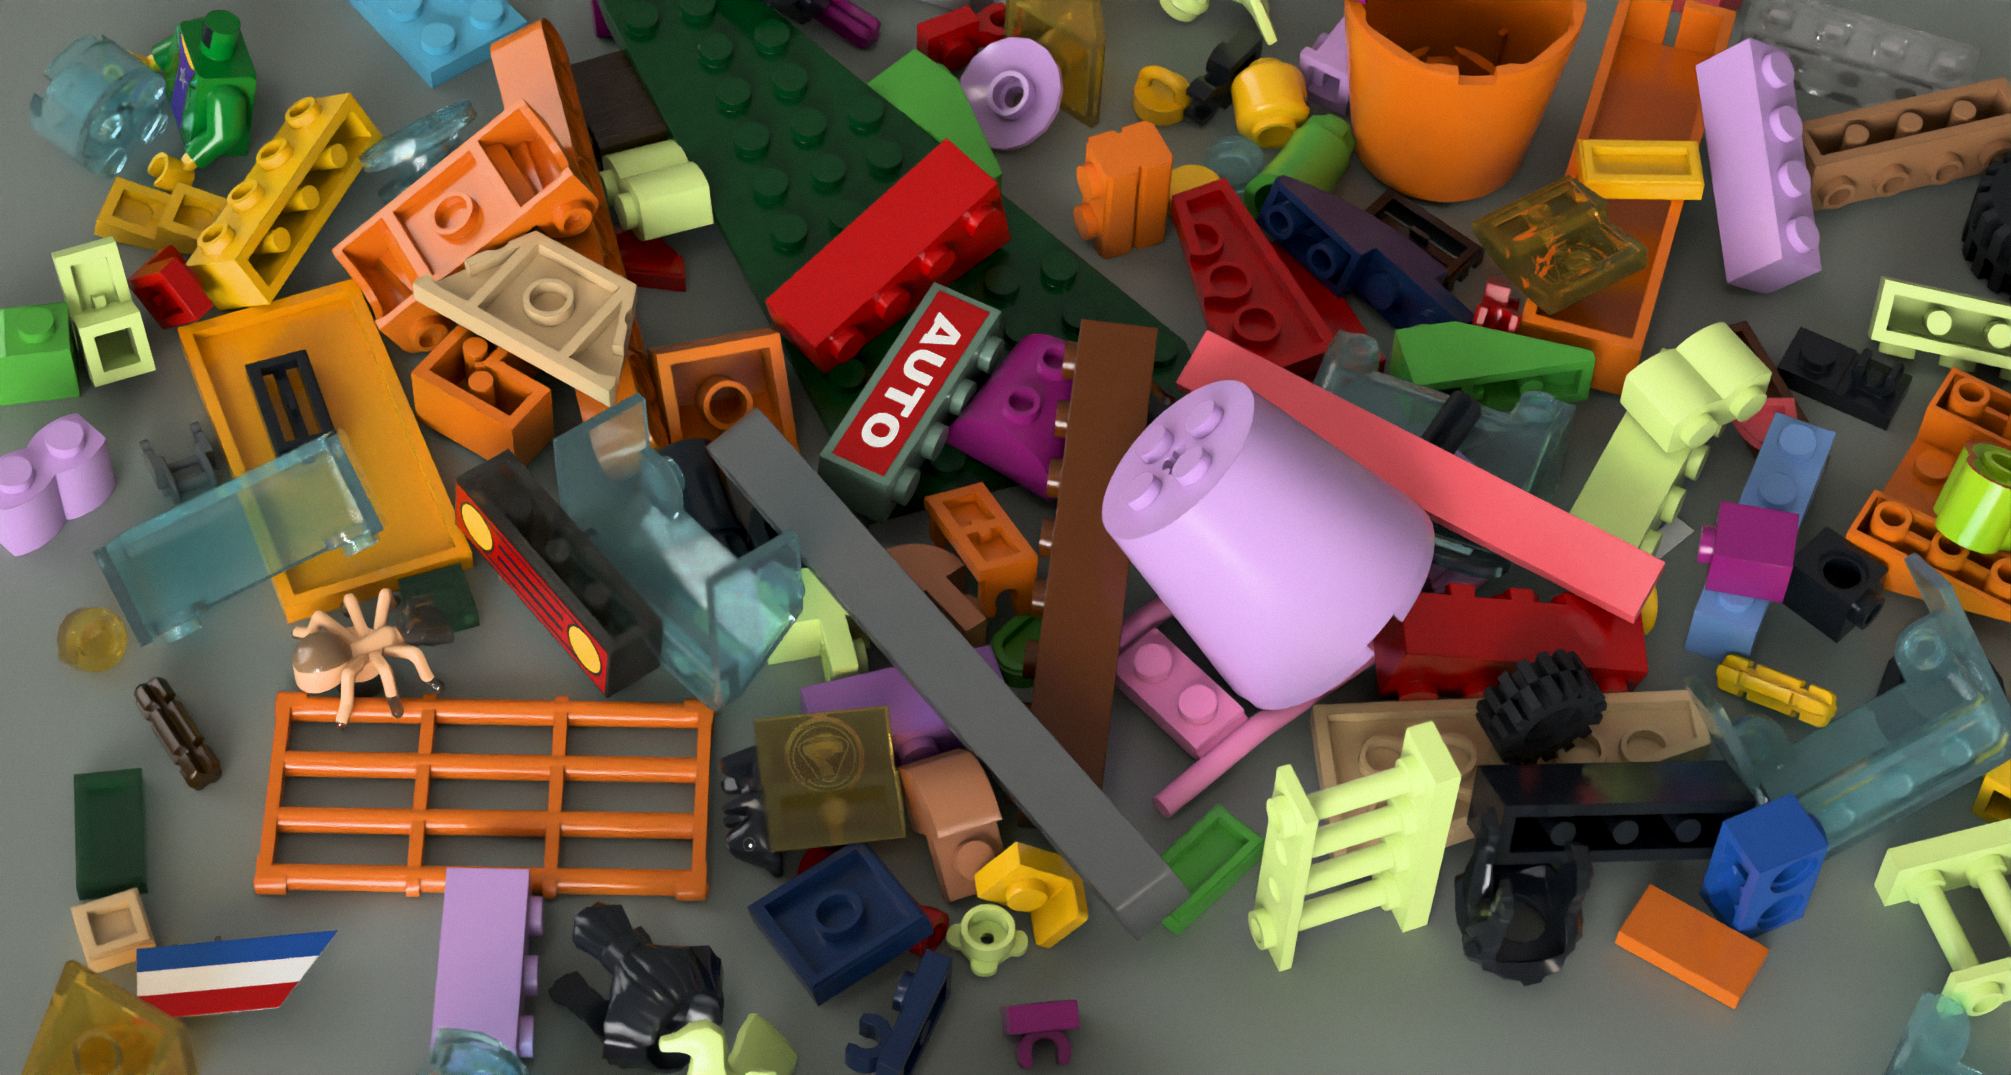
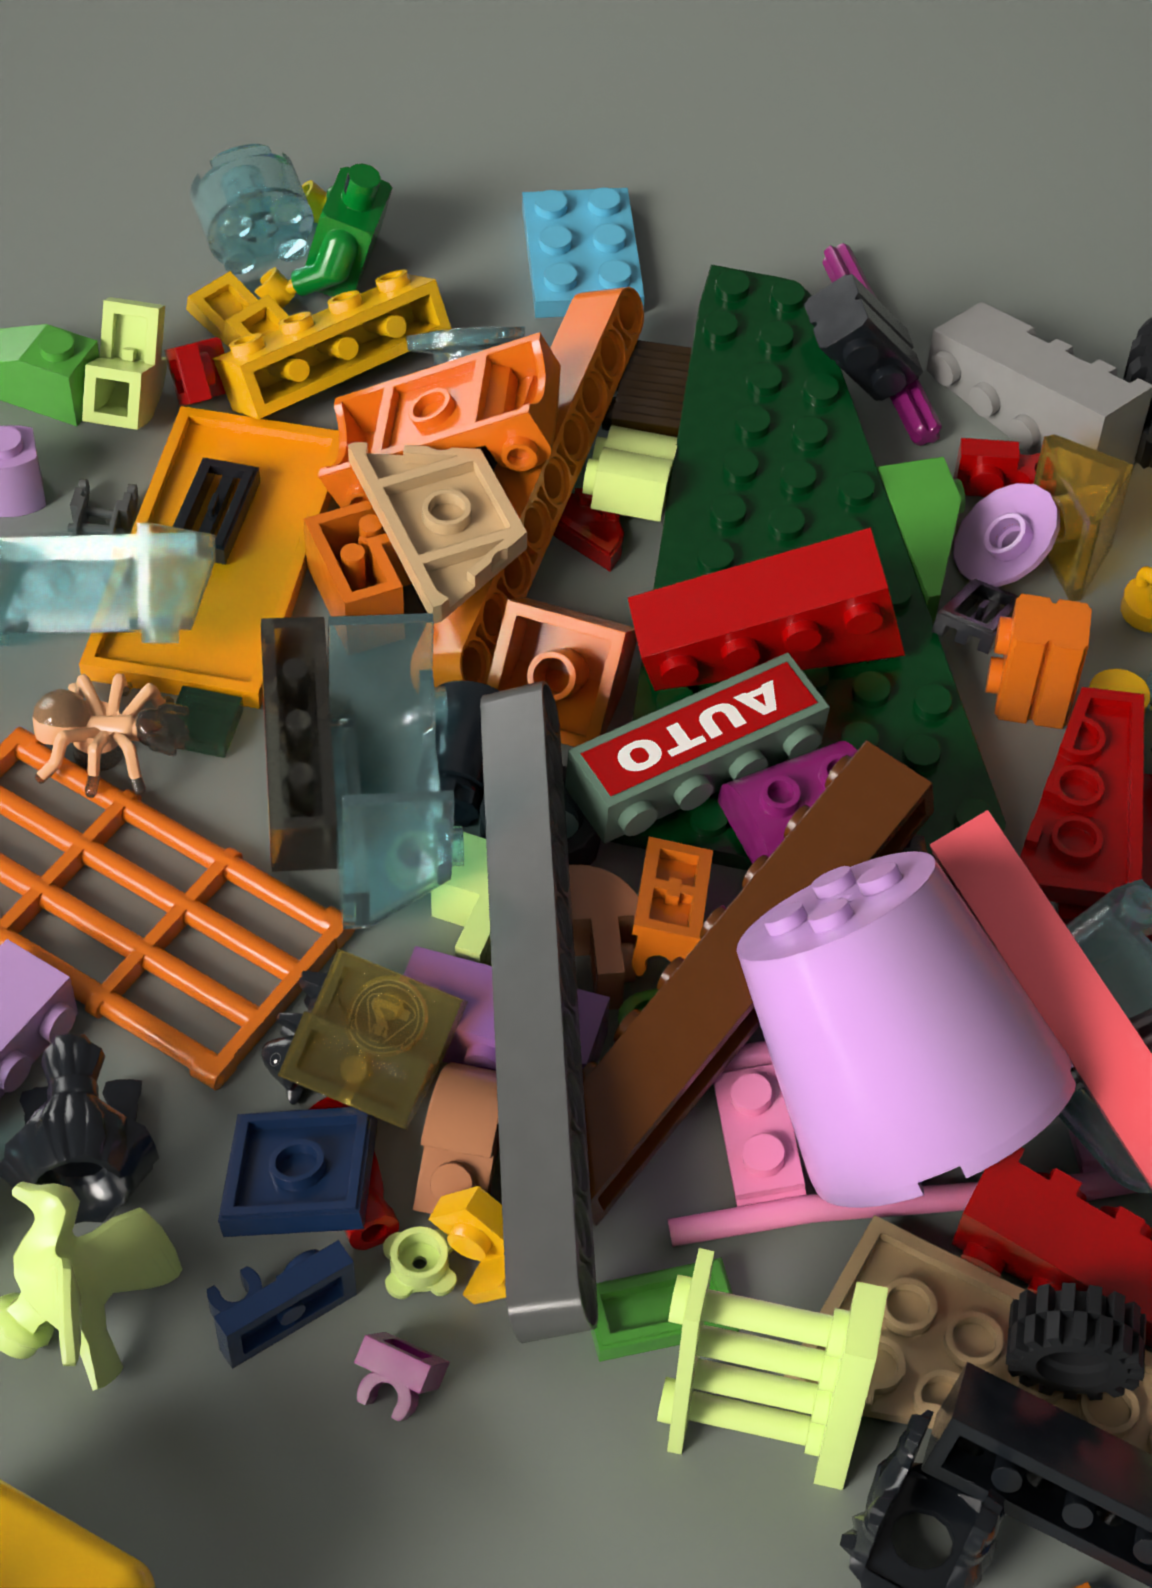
camera: 35 degrees right, 0 degrees up
(1040, 185) = (975, 626): none -> black tile

